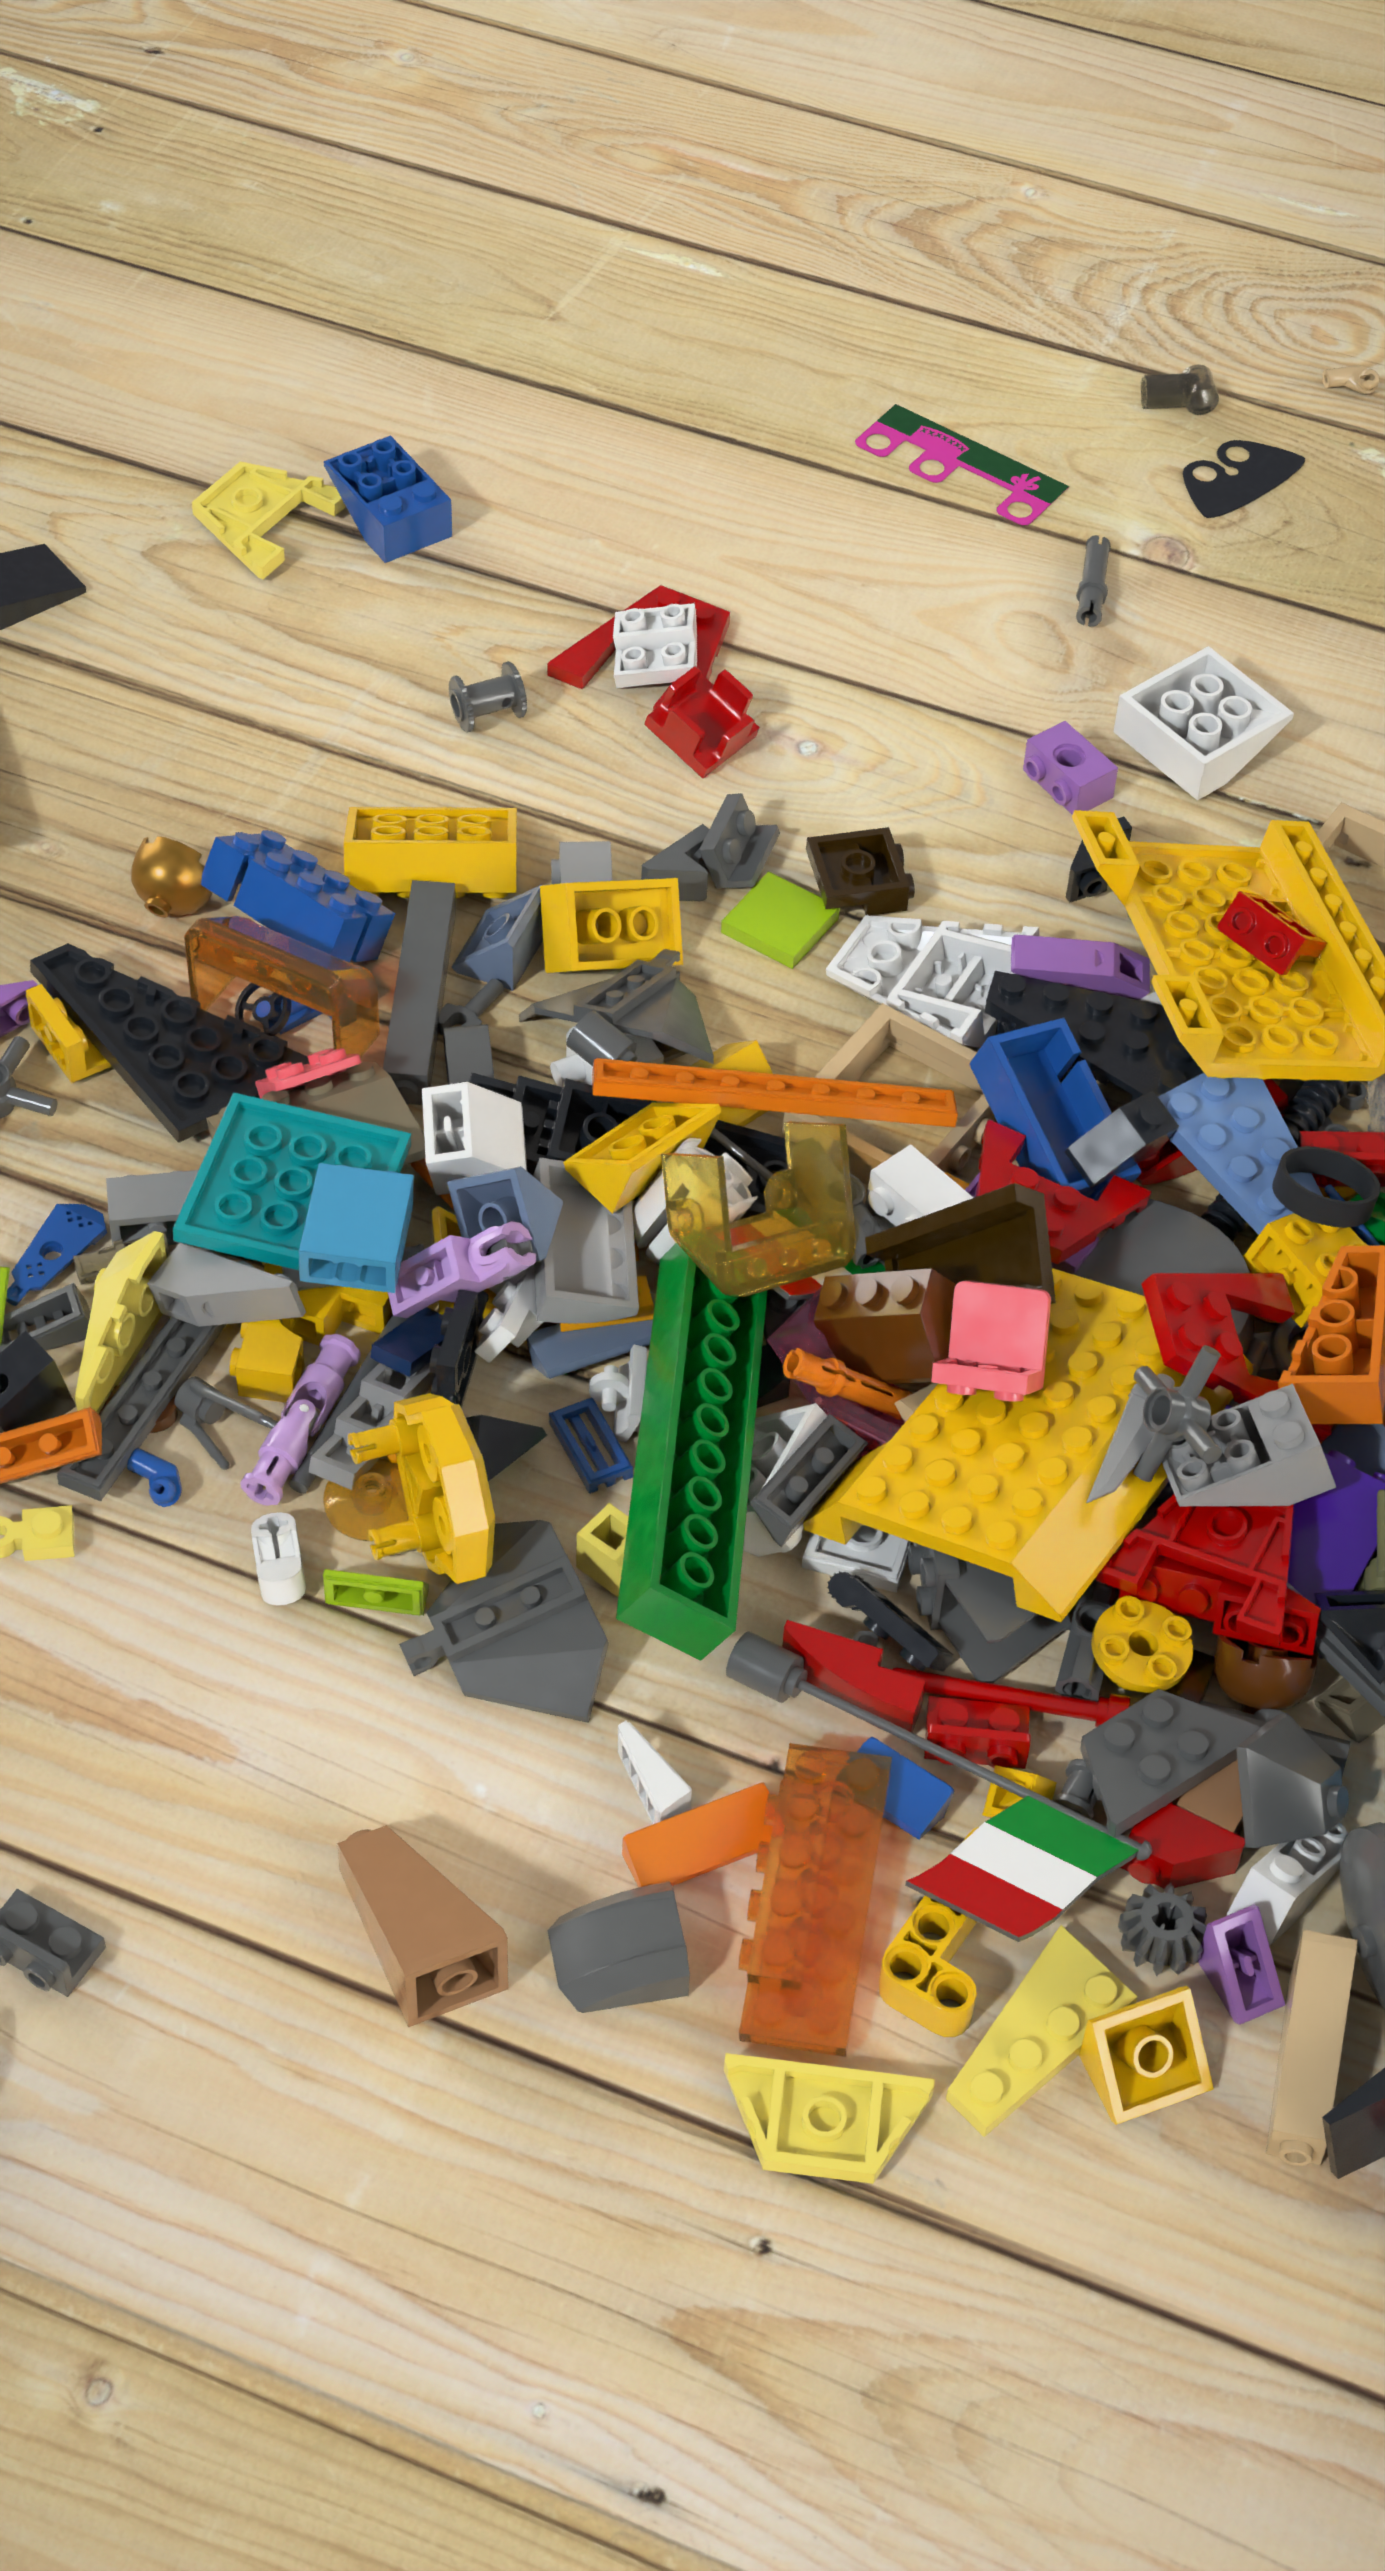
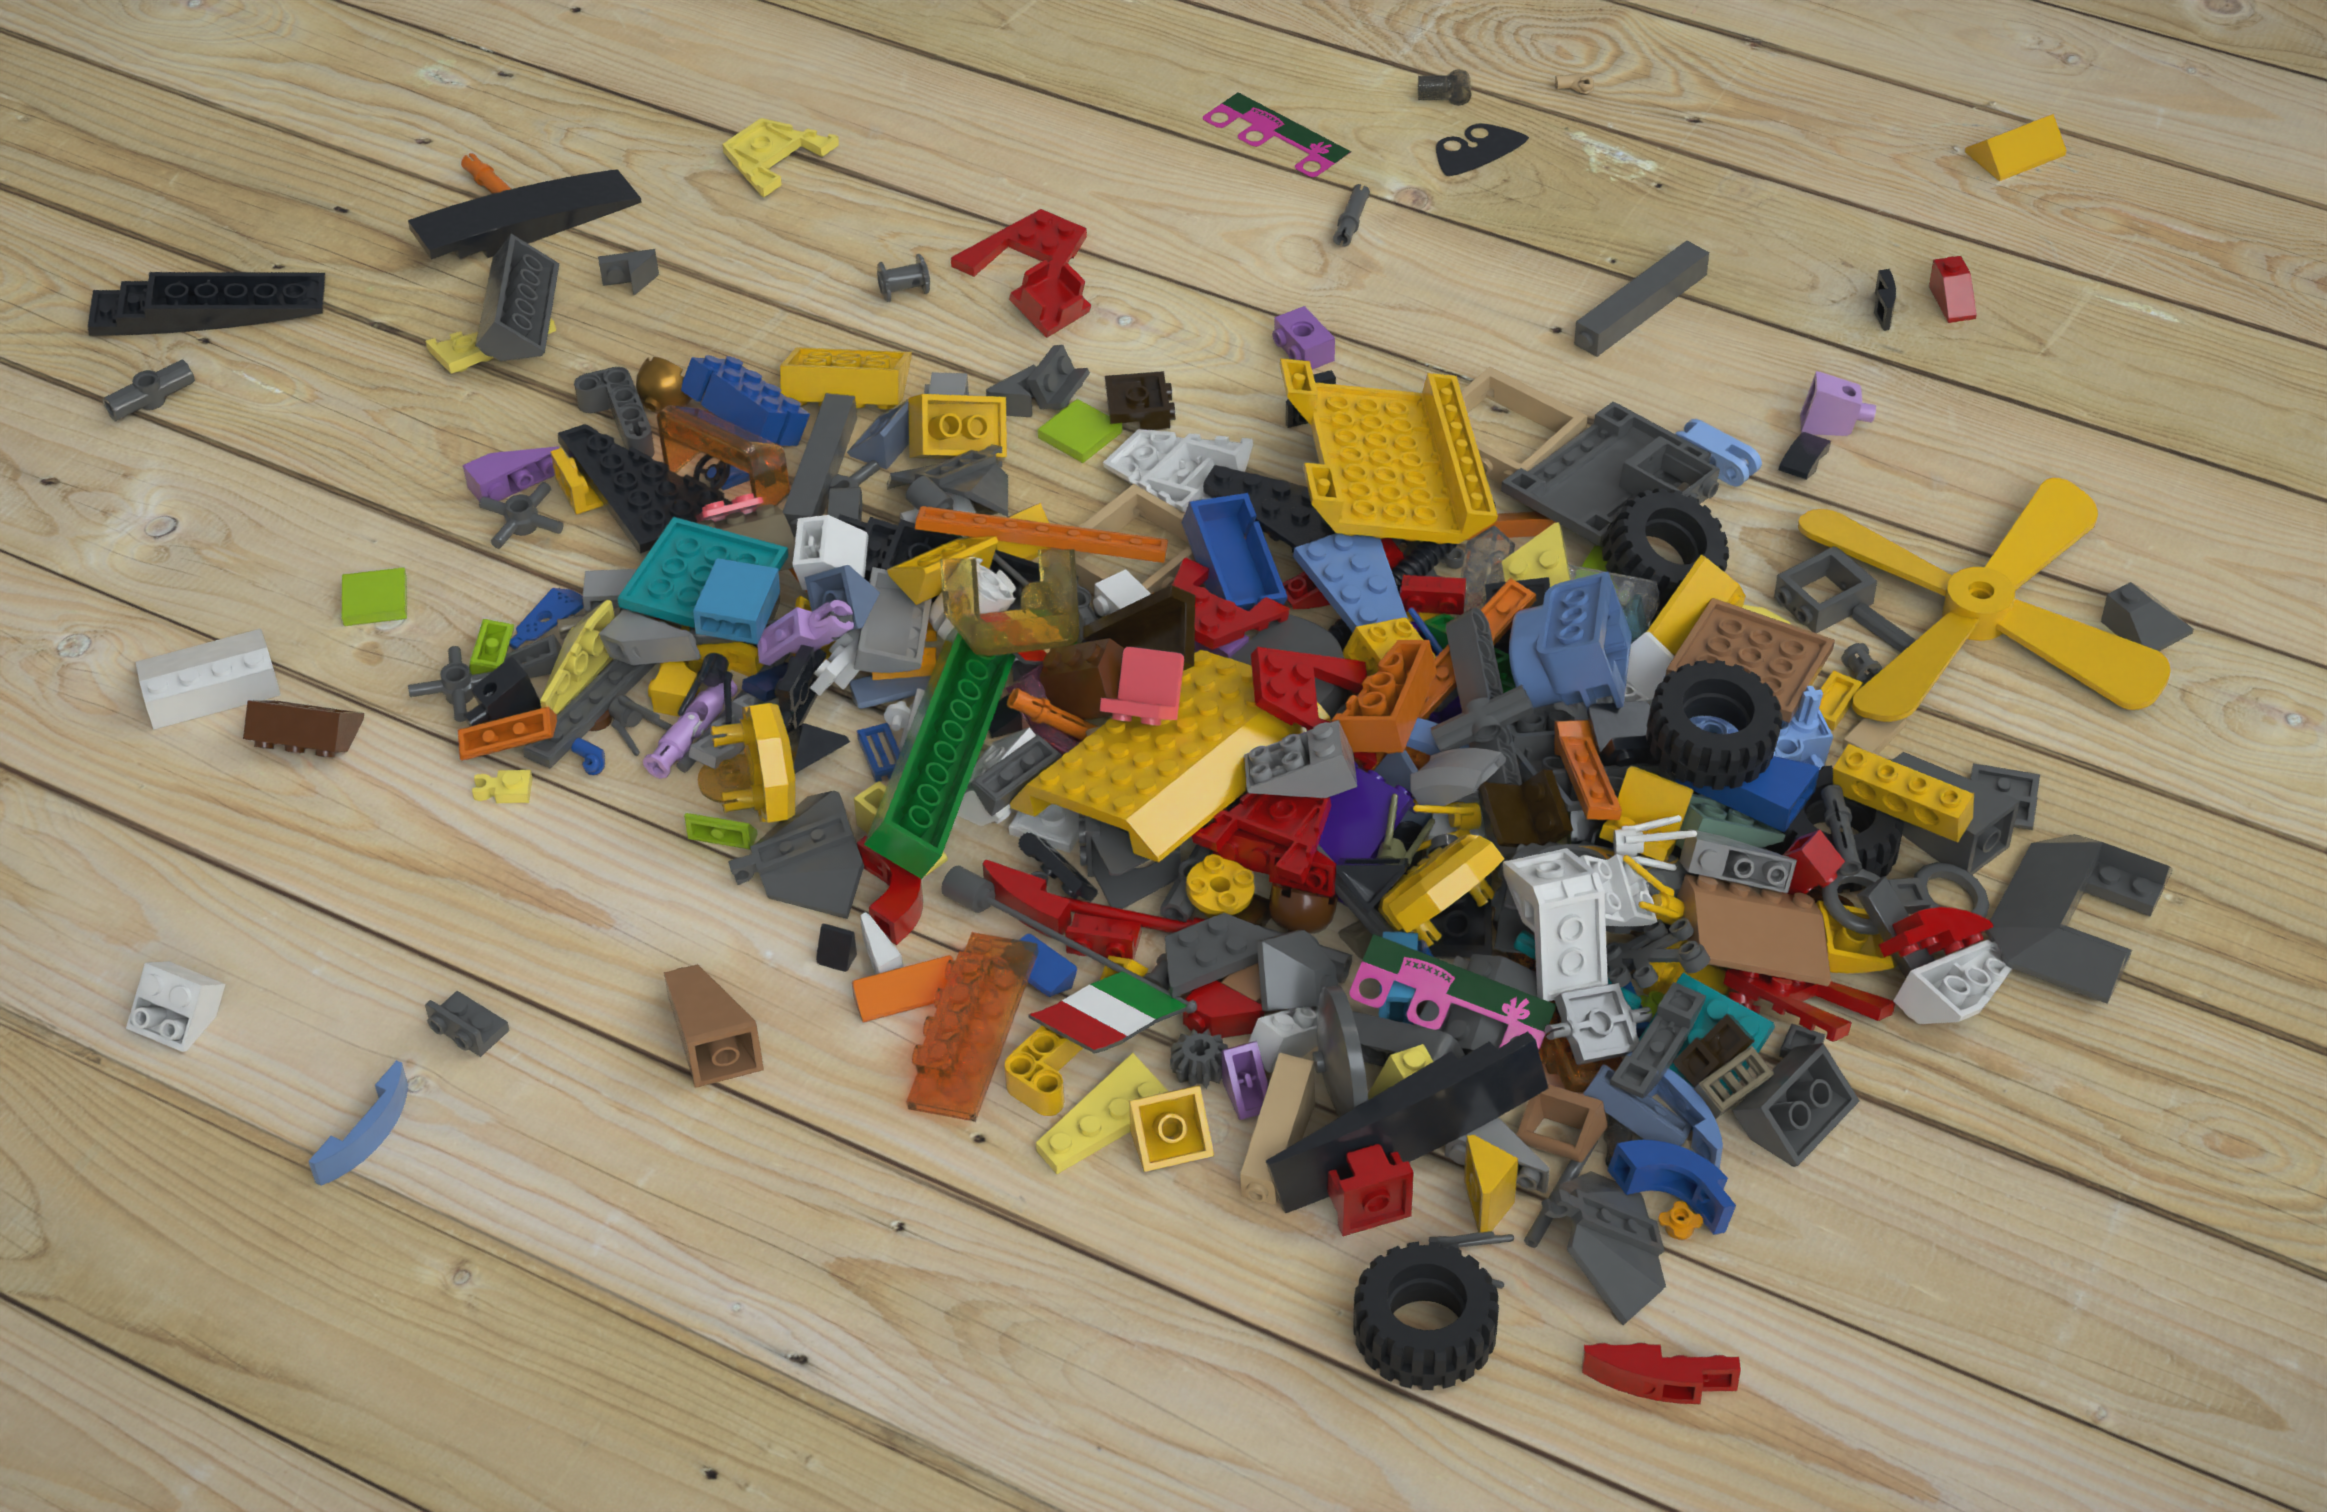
camera: 10 degrees right, 5 degrees down
(91, 693) = (632, 267): none -> dark grey slope
(102, 887) = (615, 390): none -> dark grey beam
(278, 1558) = (659, 808): white piece -> none
(327, 1339) = (712, 674): none -> black plant
(391, 498) = (861, 145): blue slope -> none
(585, 1777) = (836, 947): none -> black slope
(621, 1950) = (839, 1050): dark grey slope -> none
(654, 644) = (1026, 246): white slope -> none
(670, 1700) = (902, 903): none -> red arch
(824, 2116) = (953, 1152): light yellow wing -> none
(1082, 964) = (1269, 461): medium lavender slope -> none
(1122, 1139) = (1273, 572): slope -> none
(1127, 1443) = (1233, 745): light grey bar -> none
(1177, 1414) = (1253, 733): dark grey bar -> none
(1199, 721) = (1401, 309): white slope -> none
(1268, 932) = (1404, 443): red bracket -> none
(1320, 1208) = (1400, 620): black tyre -> none

